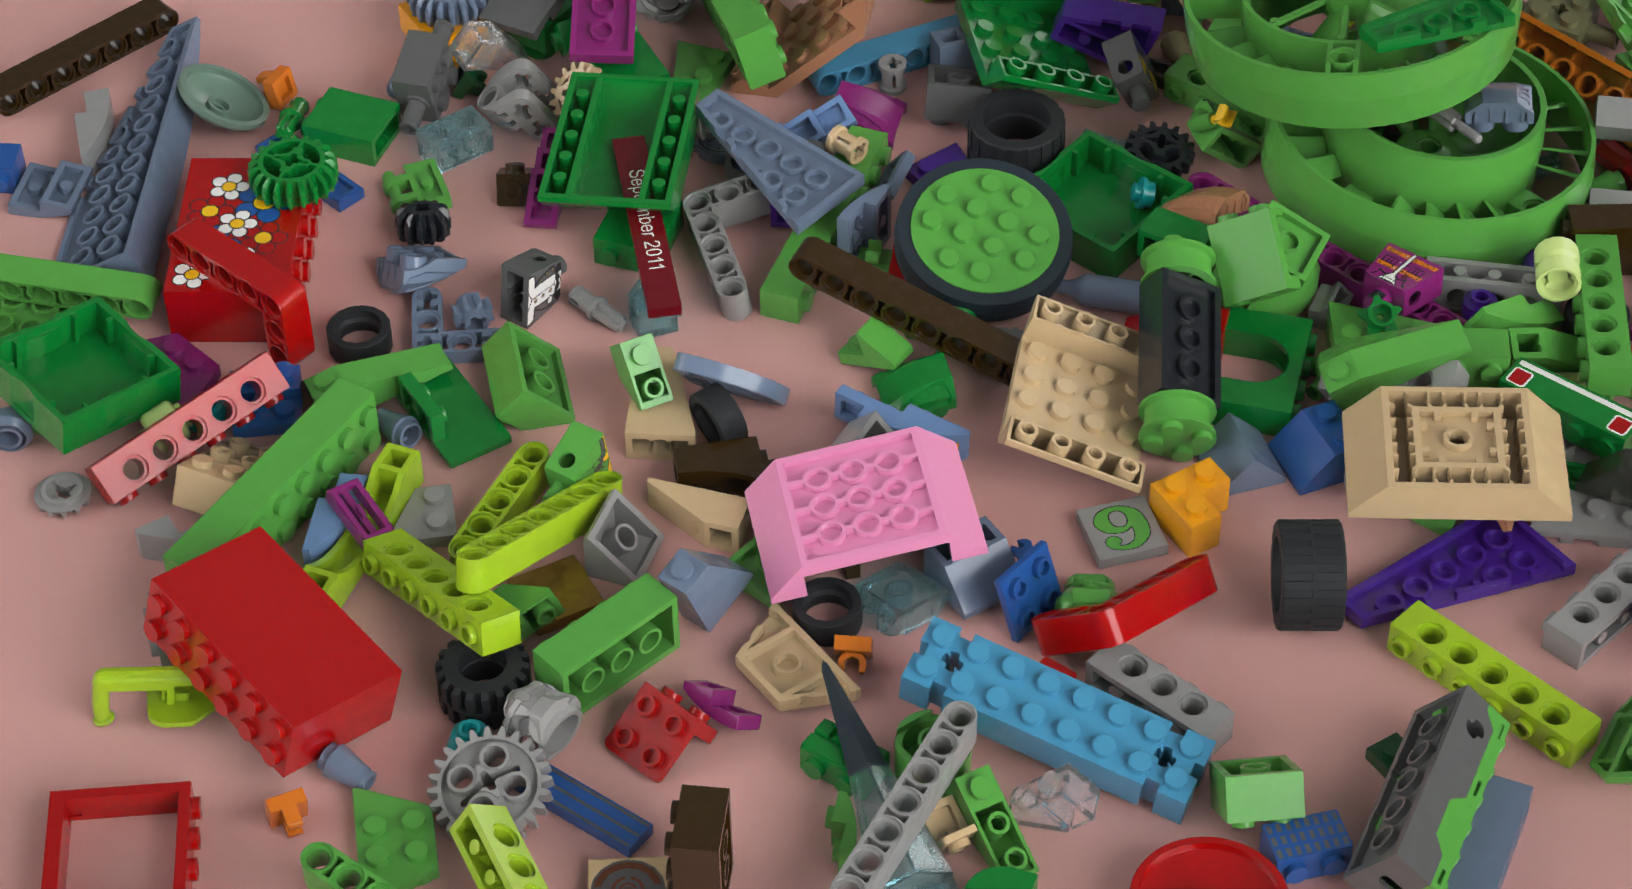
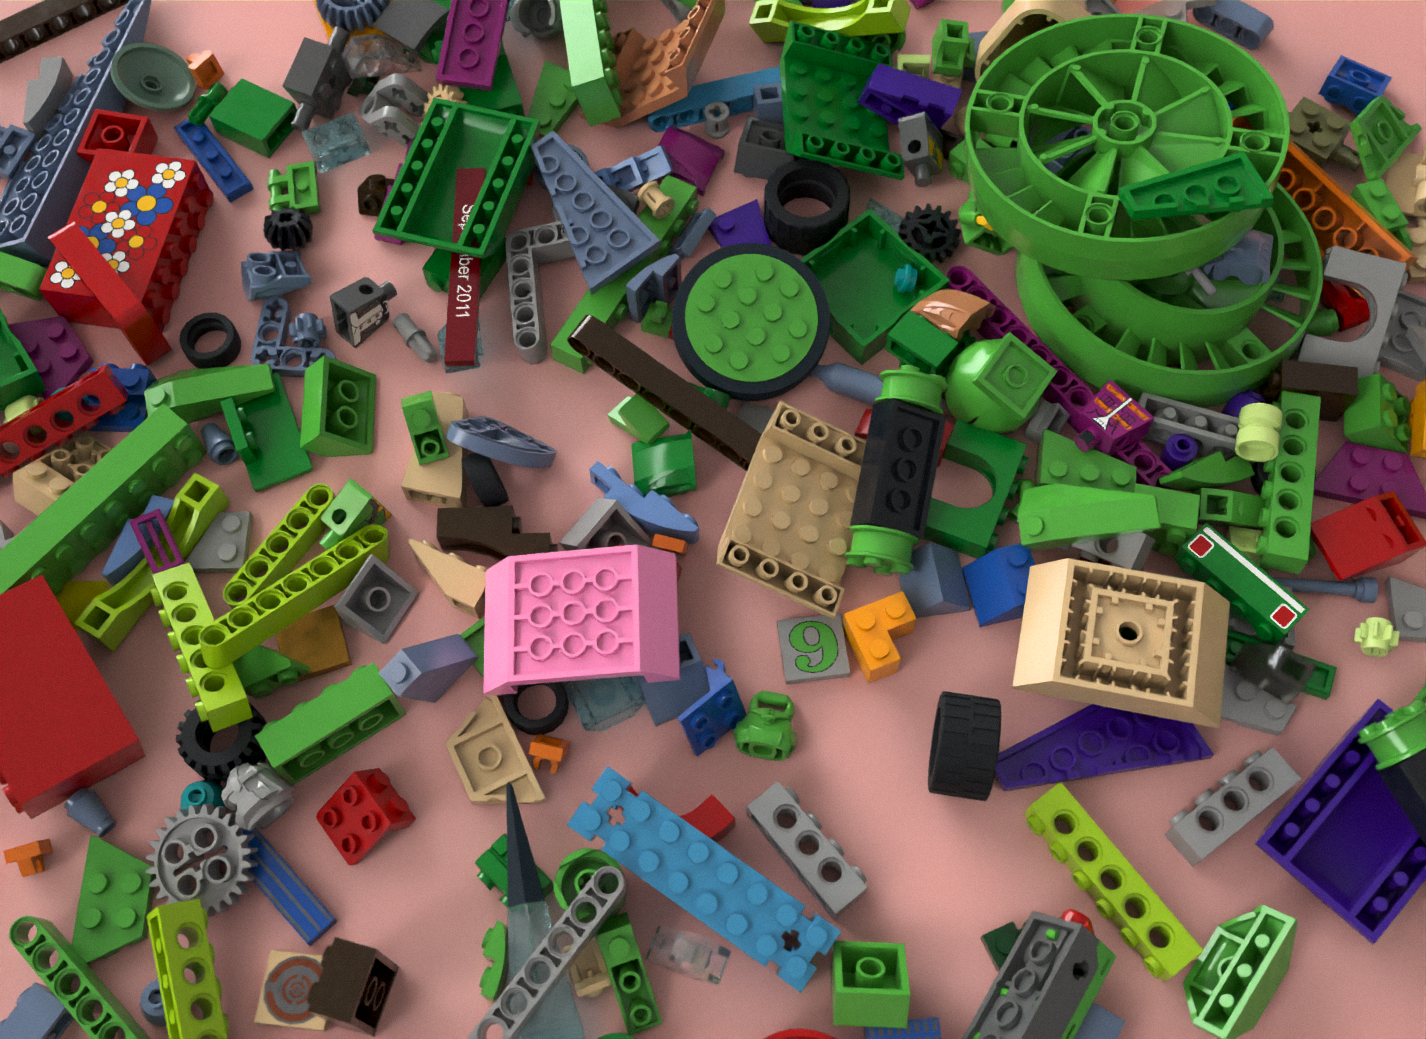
camera: 10 degrees right, 20 degrees up
(194, 143) = (117, 132): none -> red slope
(293, 172) = (169, 173): green gear -> none
(718, 703) = (417, 789): magenta slope -> none
(1128, 612) = (802, 761): red beam -> none
(1251, 256) = (979, 389): bright green panel -> none
(1383, 308) = (1094, 457): green plate -> none

